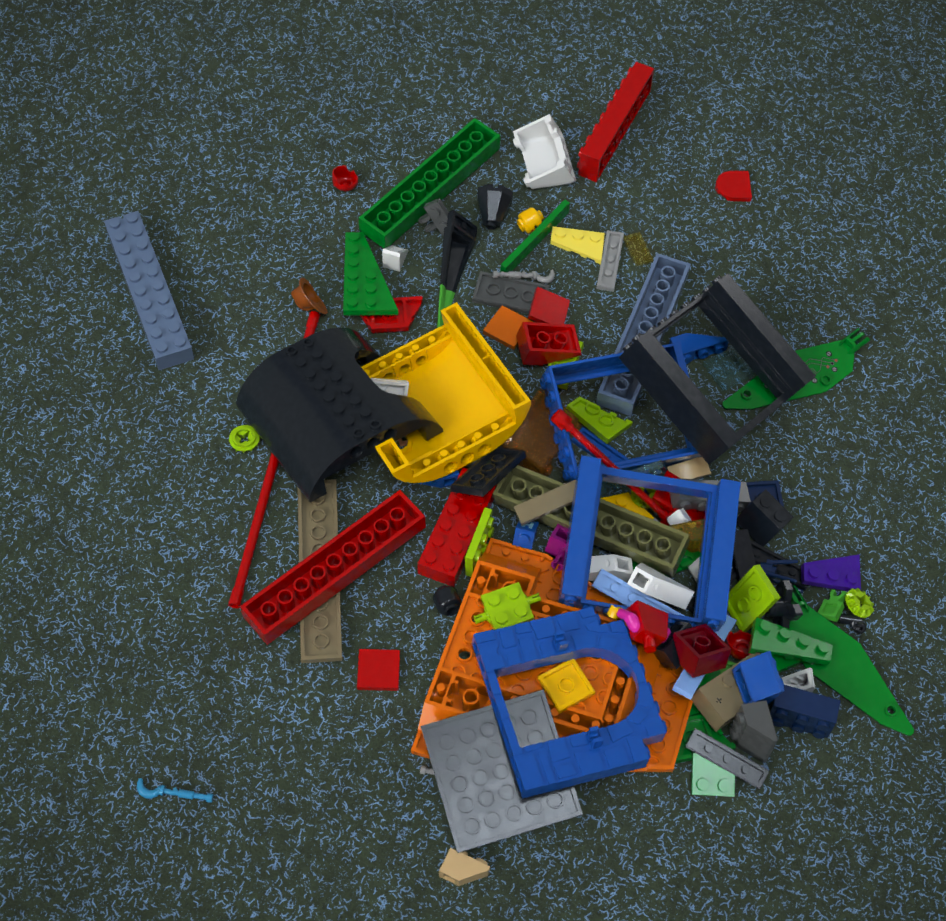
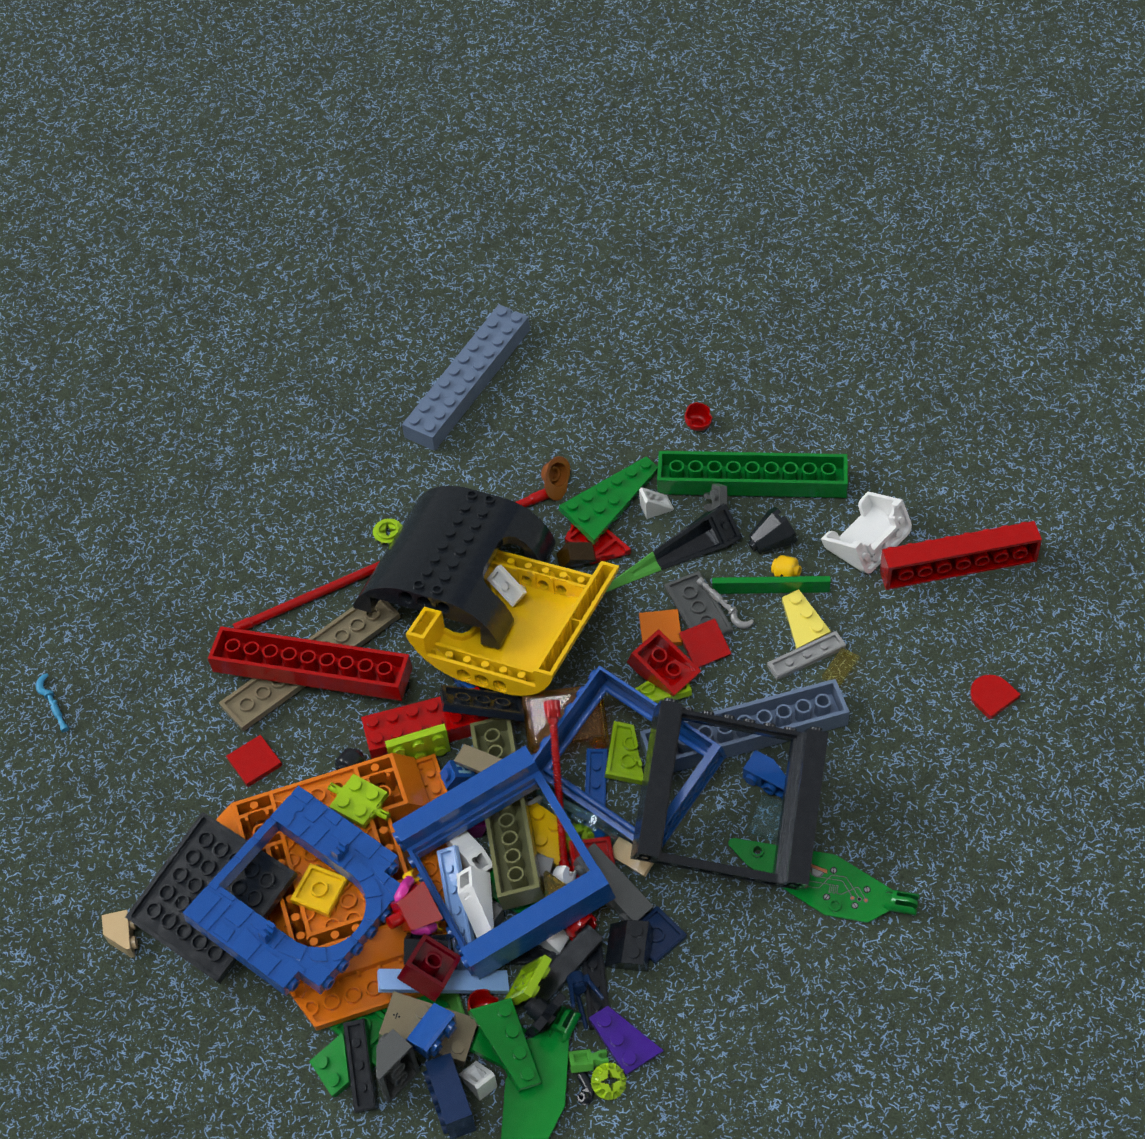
camera: 60 degrees right, 5 degrees down
(396, 333) = (576, 554): none -> dark brown slope

